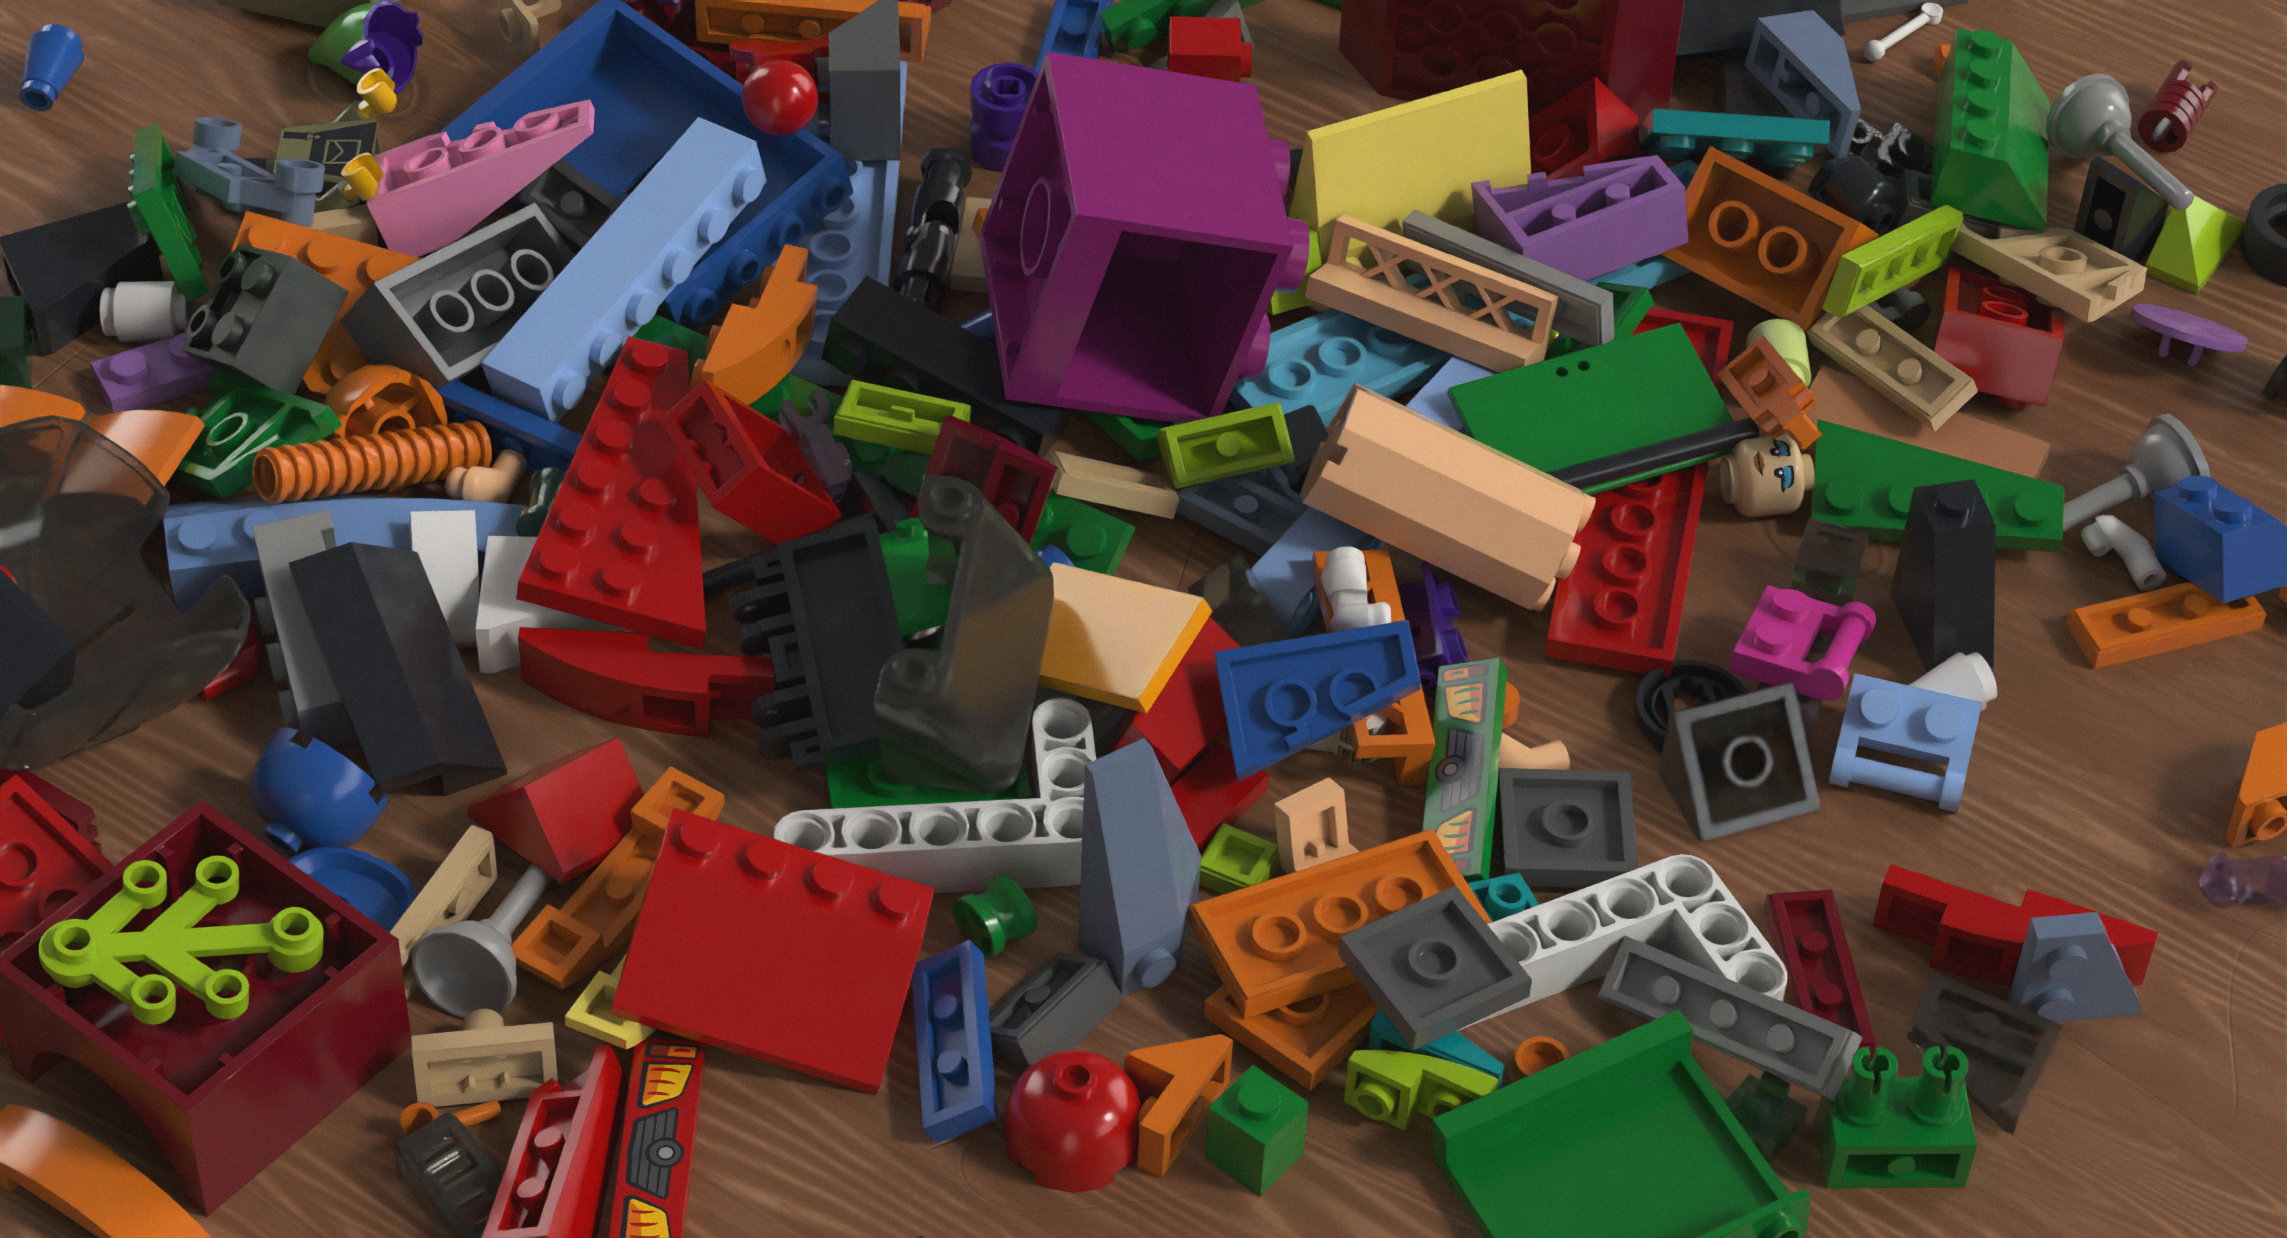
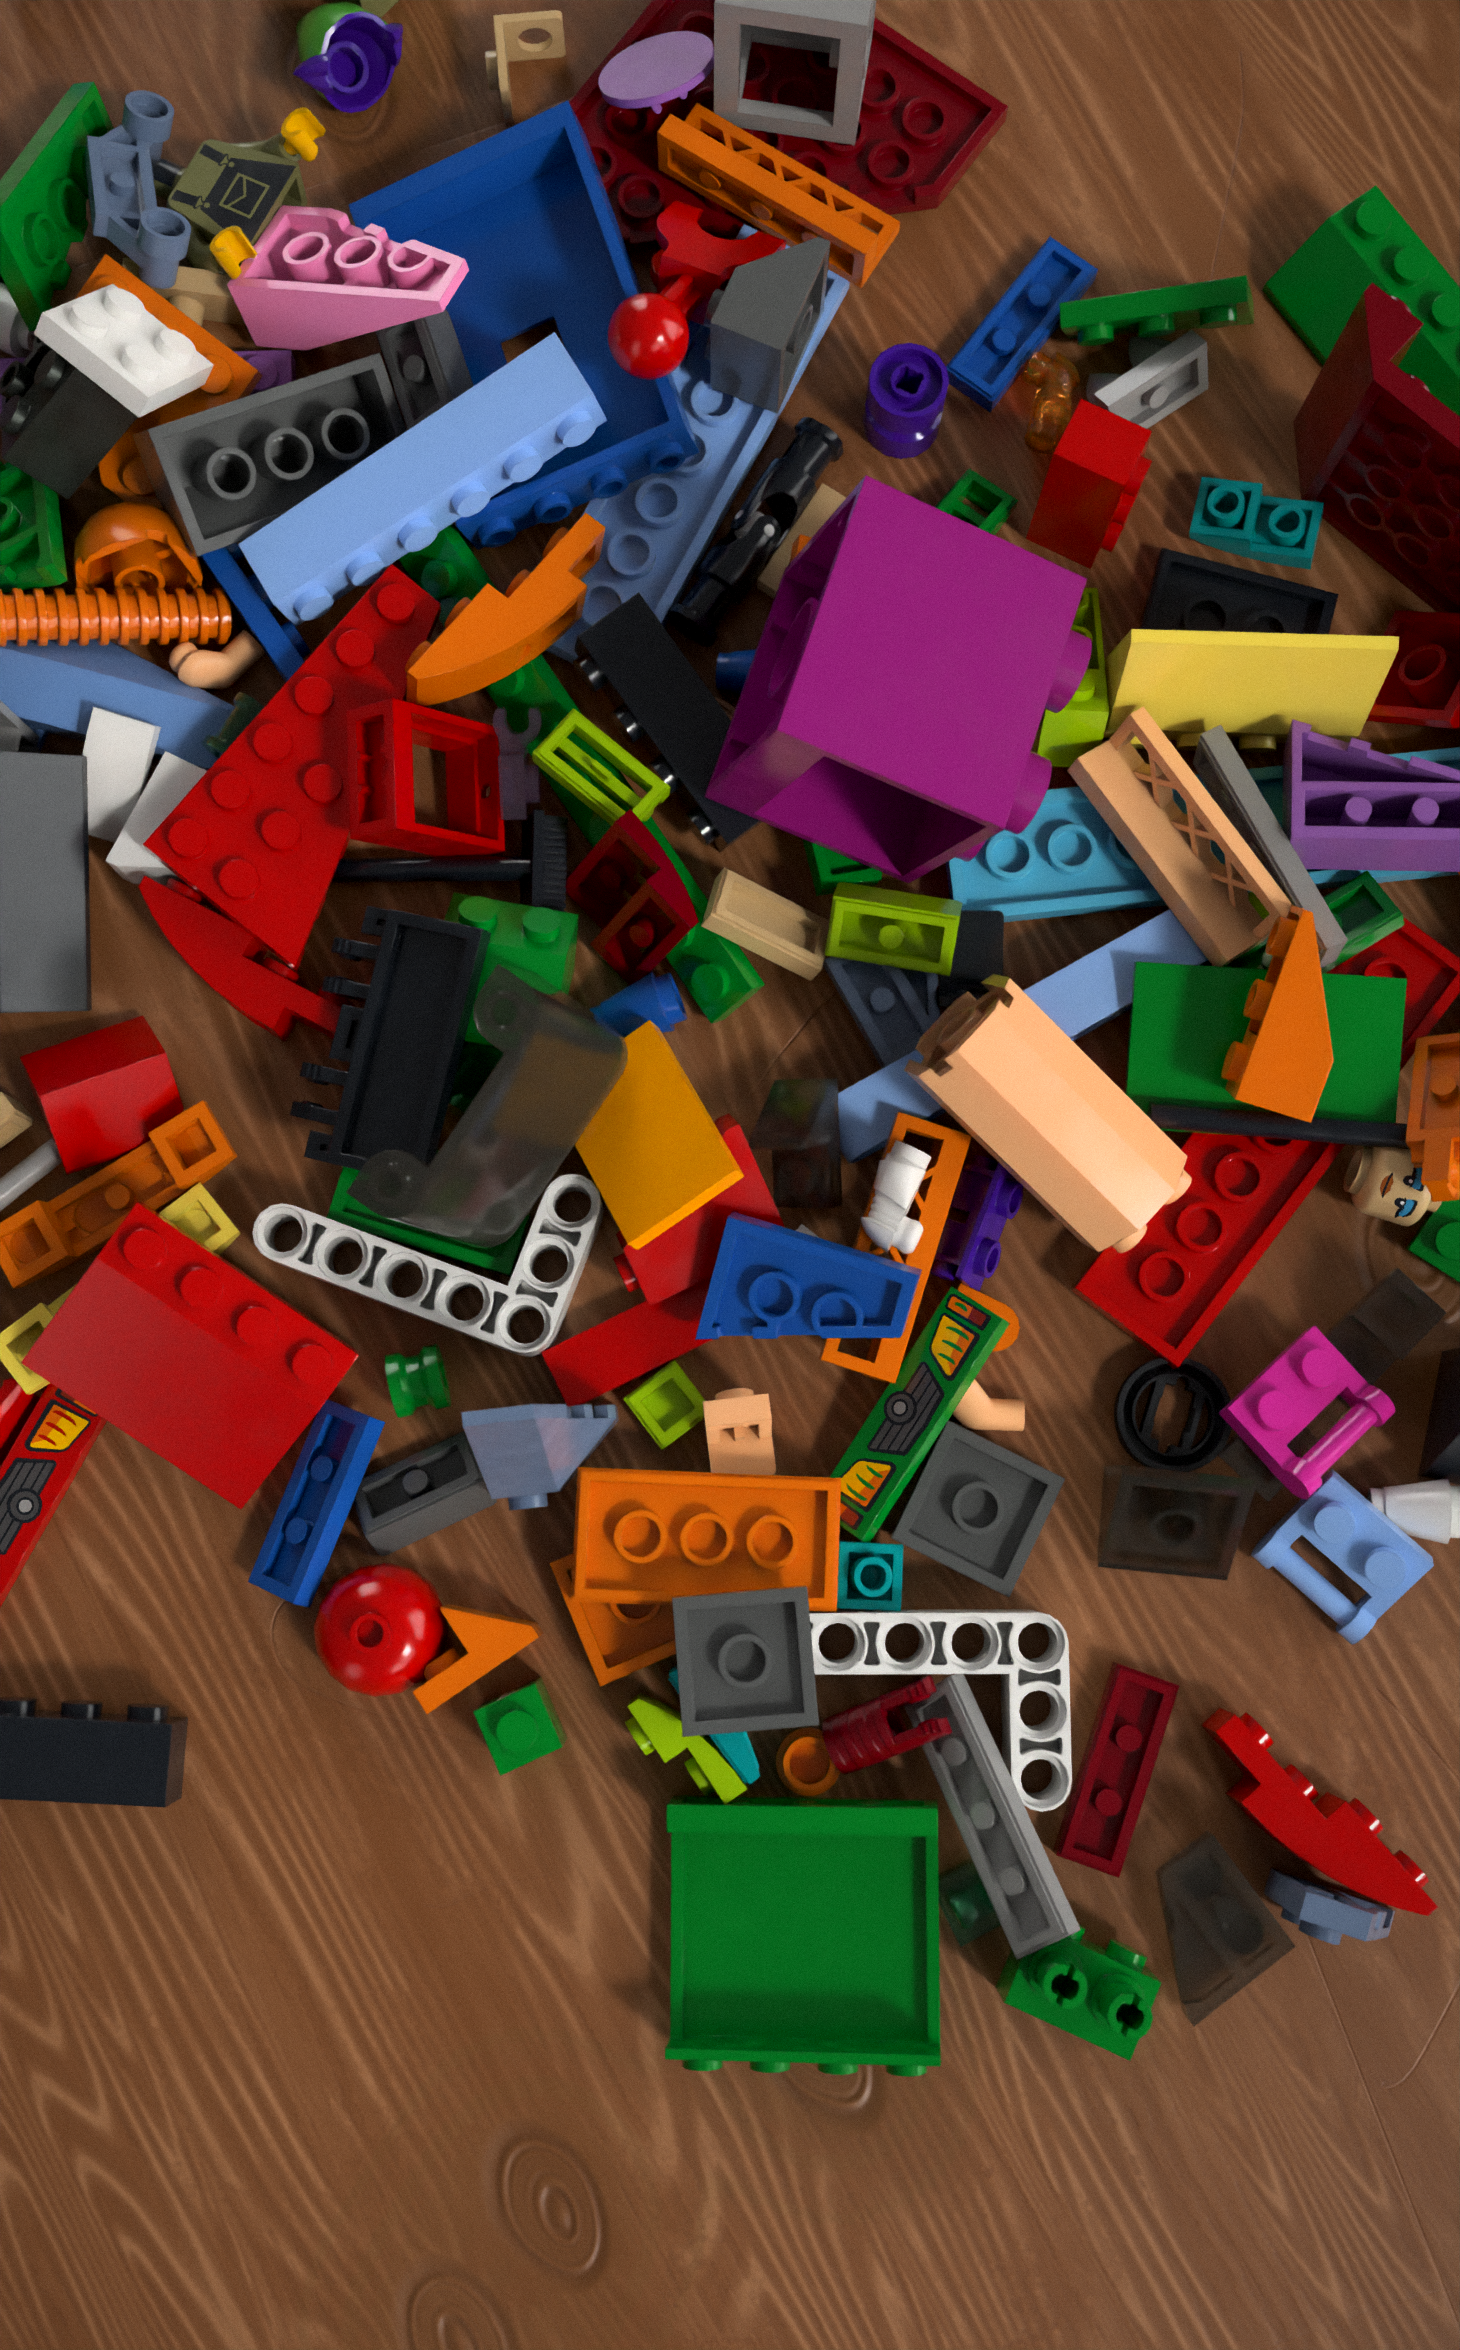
camera: 25 degrees right, 35 degrees up
(296, 238) = (124, 349): none -> white plate
(1332, 104) = (1255, 526): none -> teal slope
(1587, 1007) = (877, 1730): none -> dark red hinge
(1610, 377) = (1288, 1036): none -> orange slope

